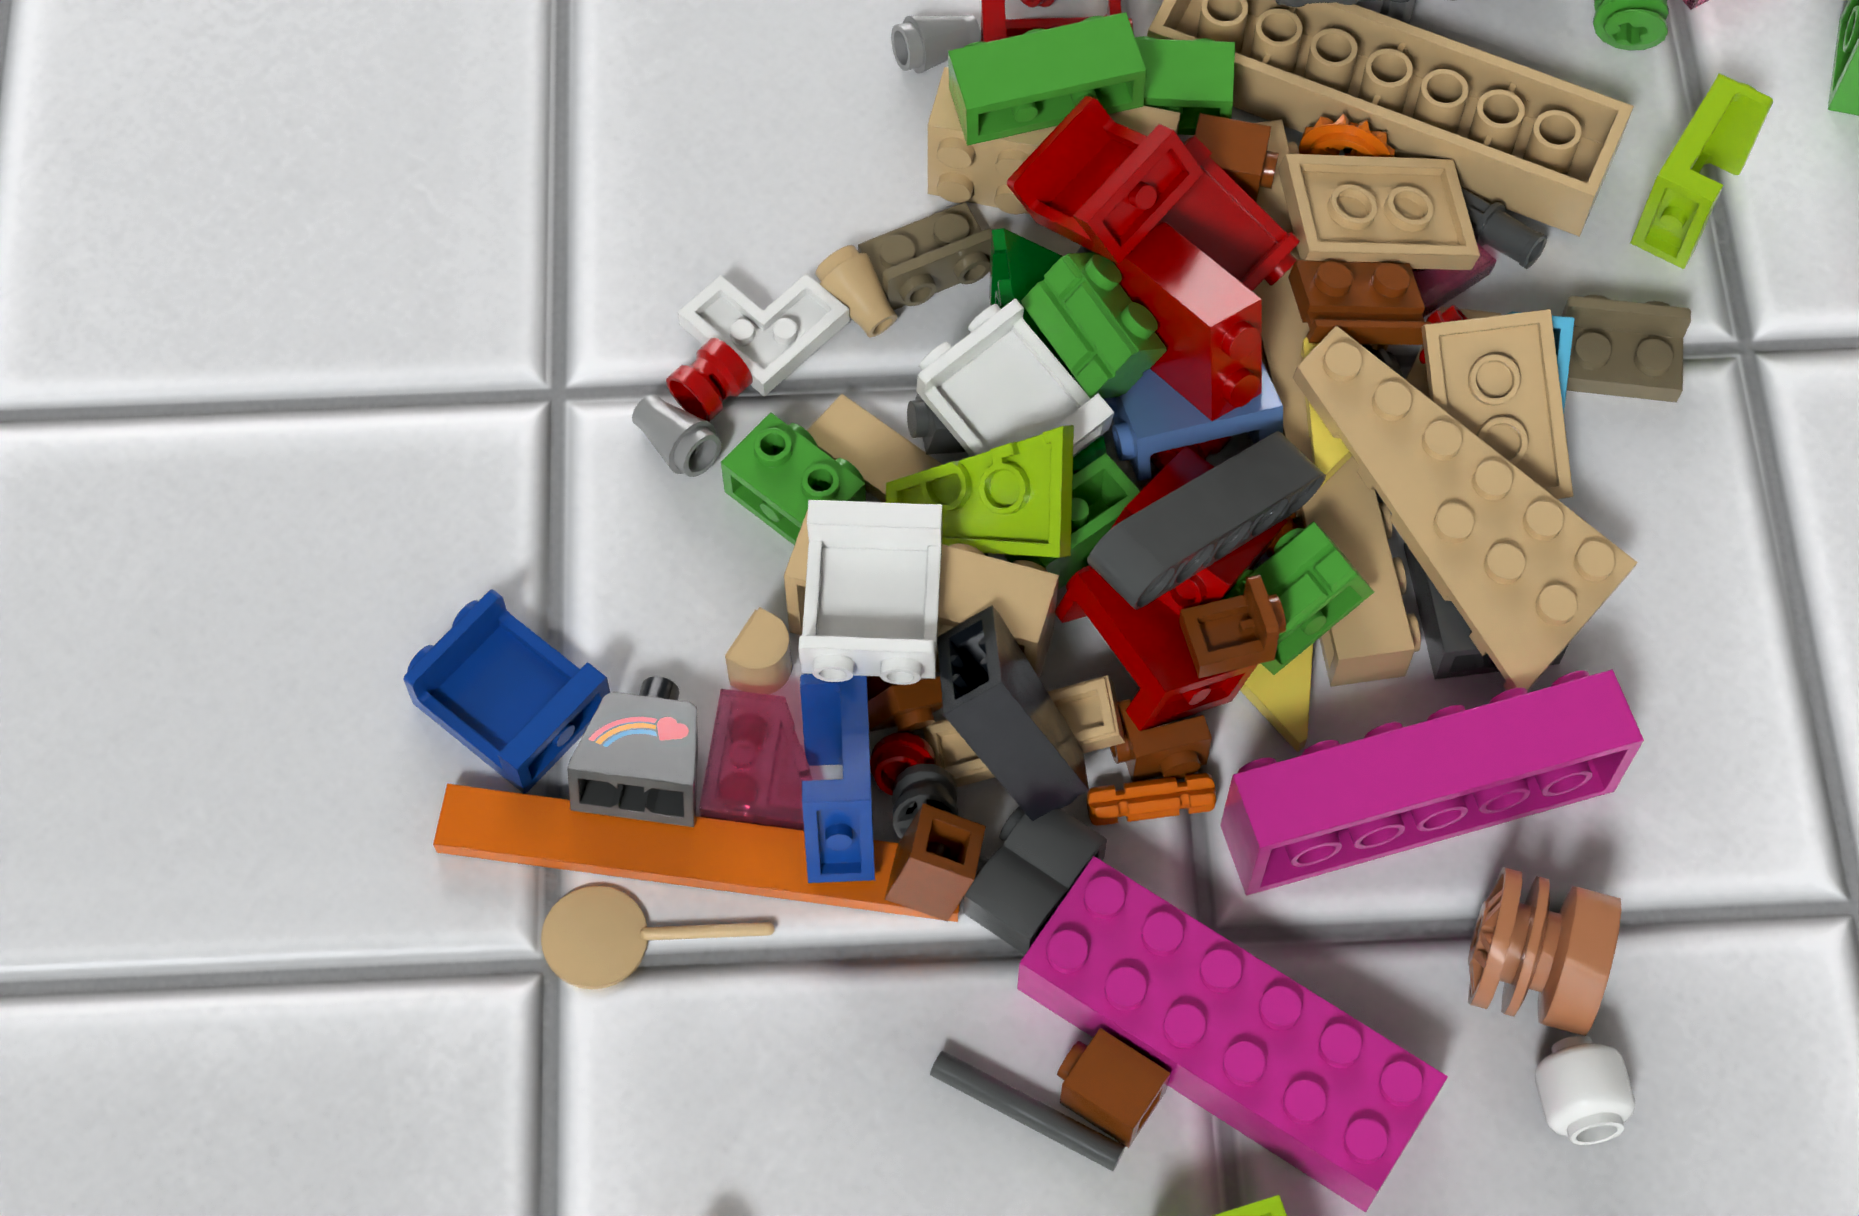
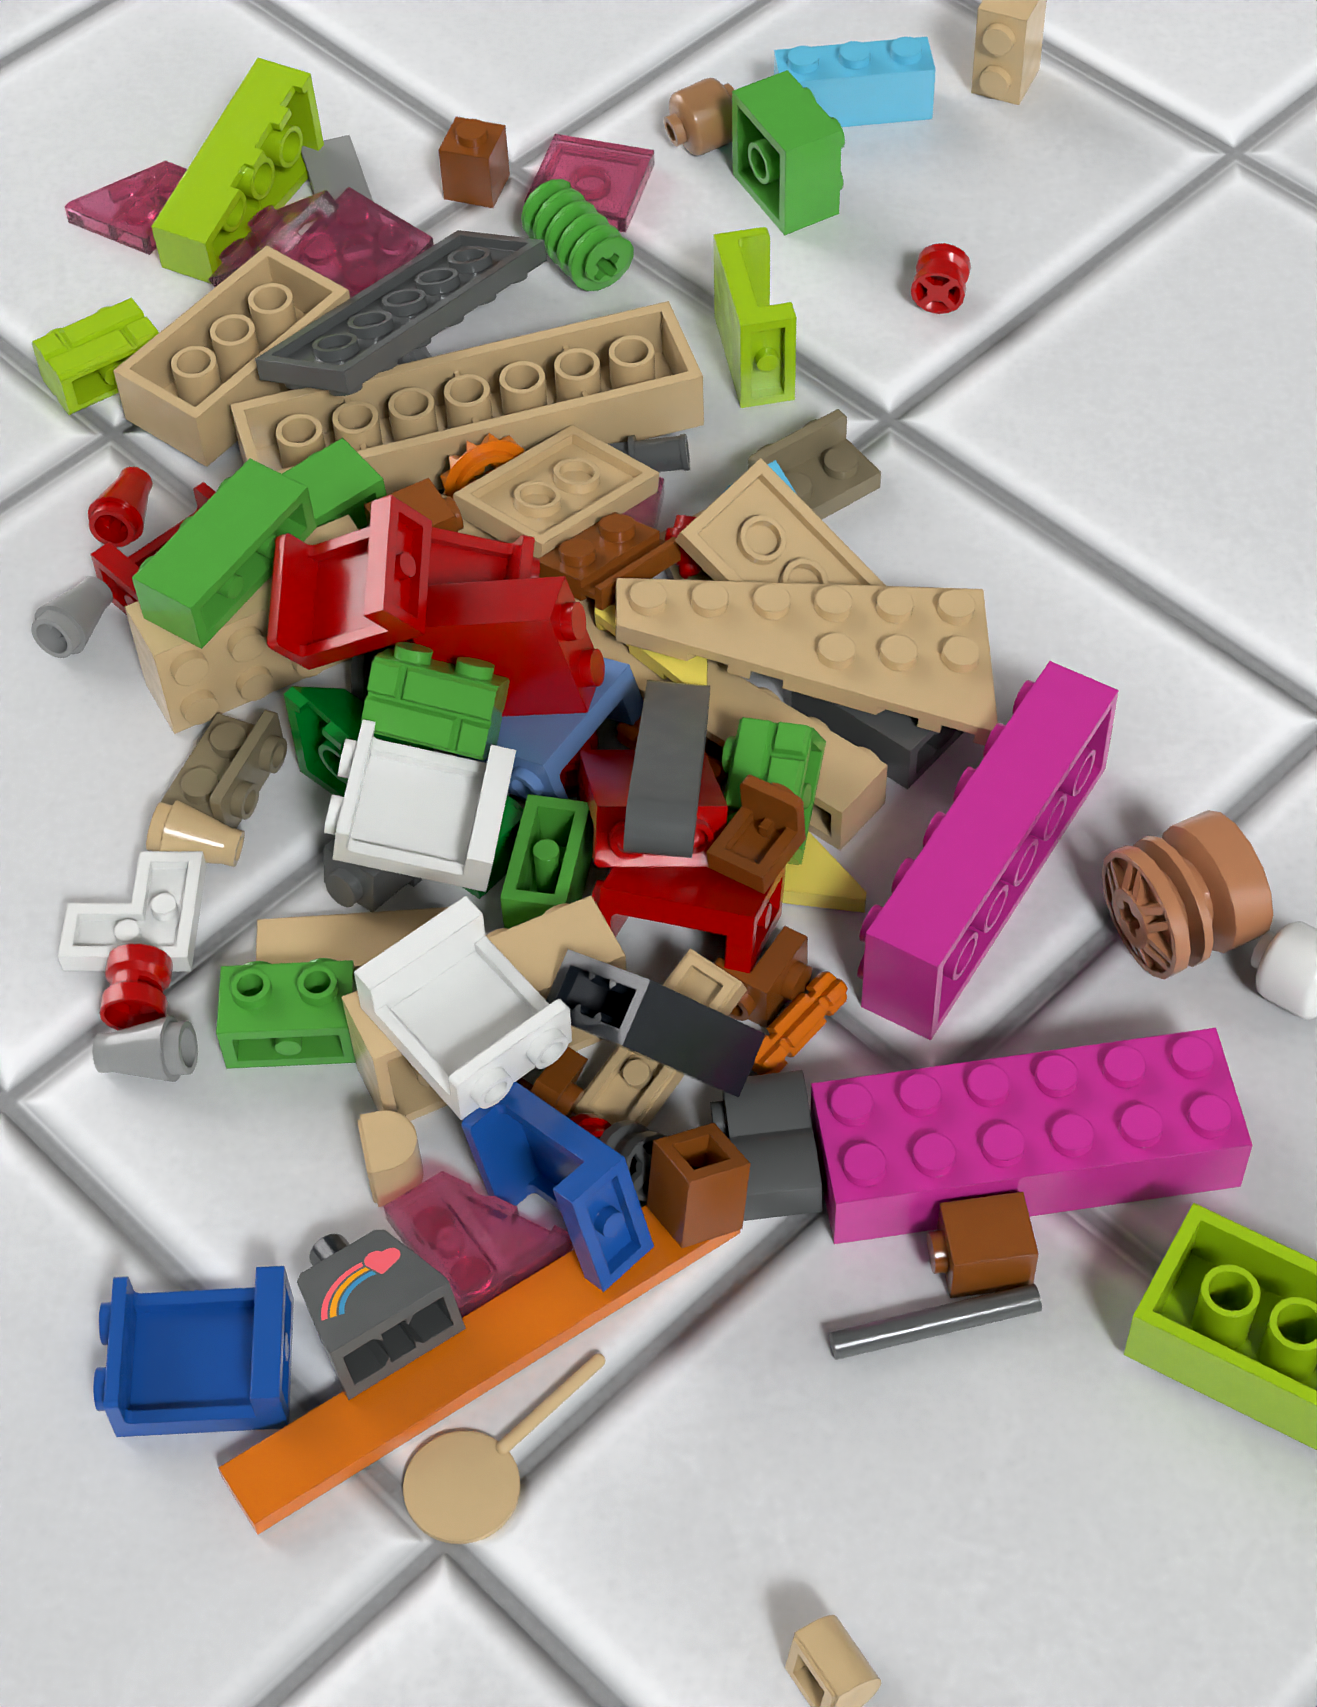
camera: 40 degrees left, 10 degrees down
(1004, 498) = (497, 860): lime wing -> none

